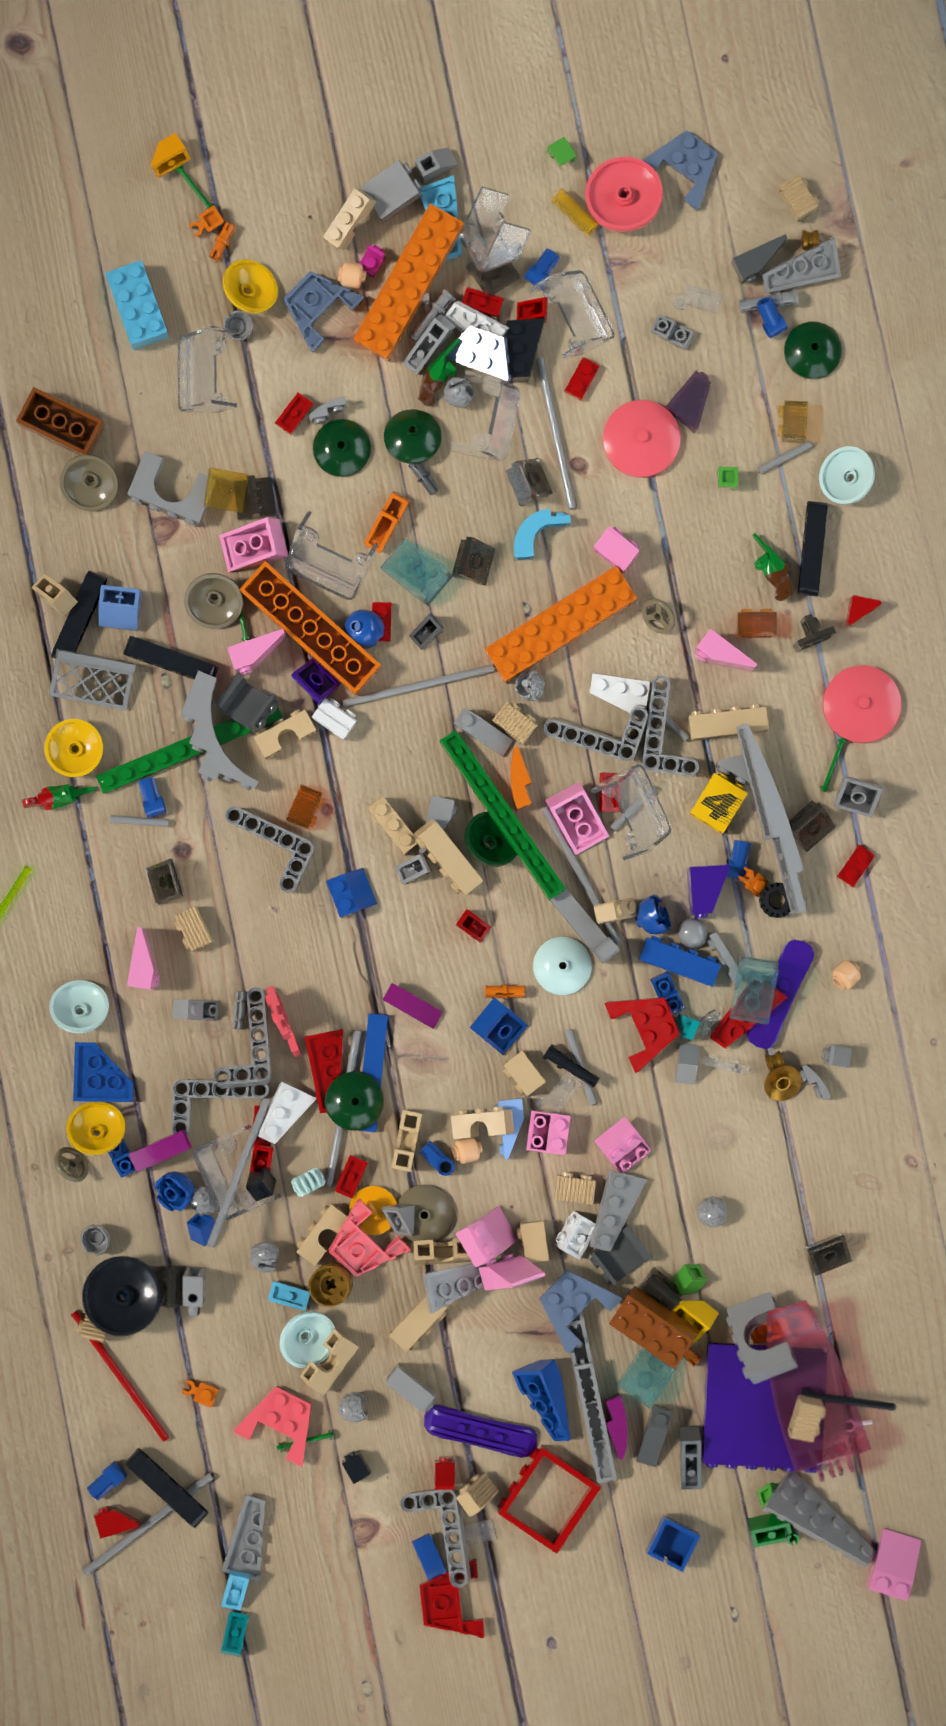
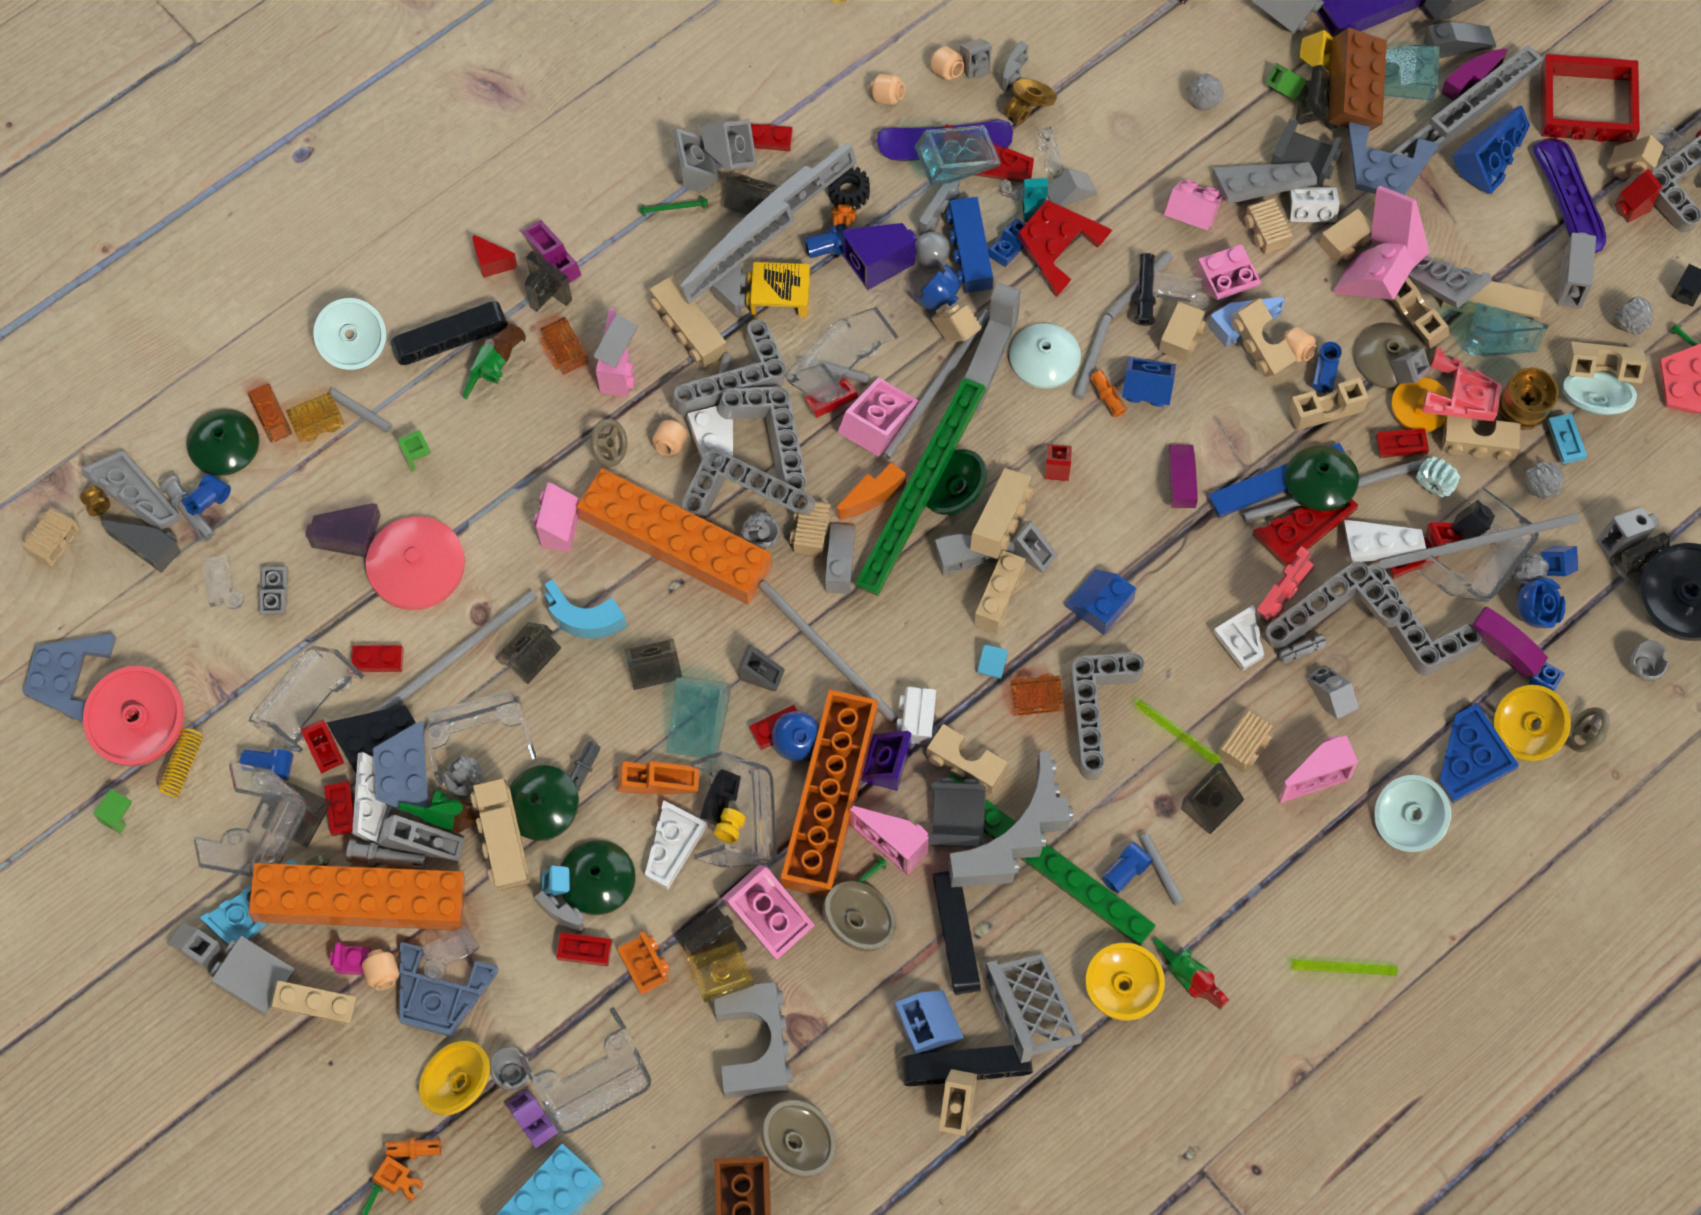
camera: 115 degrees left, 20 degrees down
(192, 323) = (531, 1118): none -> medium lavender slope
(227, 889) = (1178, 732): none -> clear neon green bar
(262, 446) = (643, 963): none -> orange bracket
(268, 972) = (1241, 638): none -> white wing
(325, 555) = (729, 826): none -> yellow wheel
(335, 508) = (674, 841): none -> white wing
(341, 323) = (447, 951): none -> clear hinge
(346, 550) = (722, 790): none -> black slope
(346, 792) = (992, 661): none -> medium azure slope
(351, 417) = (555, 880): none -> medium azure slope
(395, 1294) = (1502, 333): none -> clear light blue slope
(396, 394) = (501, 833): none -> tan piece
(450, 269) = (319, 860): none -> olive plate
(541, 999) = (1093, 356): none -> light grey bar
(567, 691) = (746, 479): none -> light grey beam
(640, 661) = (669, 437): none -> light nougat head
(723, 652) = (615, 341): none -> light grey slope
(814, 391) = (269, 413): none -> clear orange brick
(840, 654) = (551, 249): none -> magenta slope
(845, 1032) = (947, 63): none -> light nougat head
(858, 829) = (730, 143): none -> light grey slope
(861, 704) = (593, 211): coral dish -> none

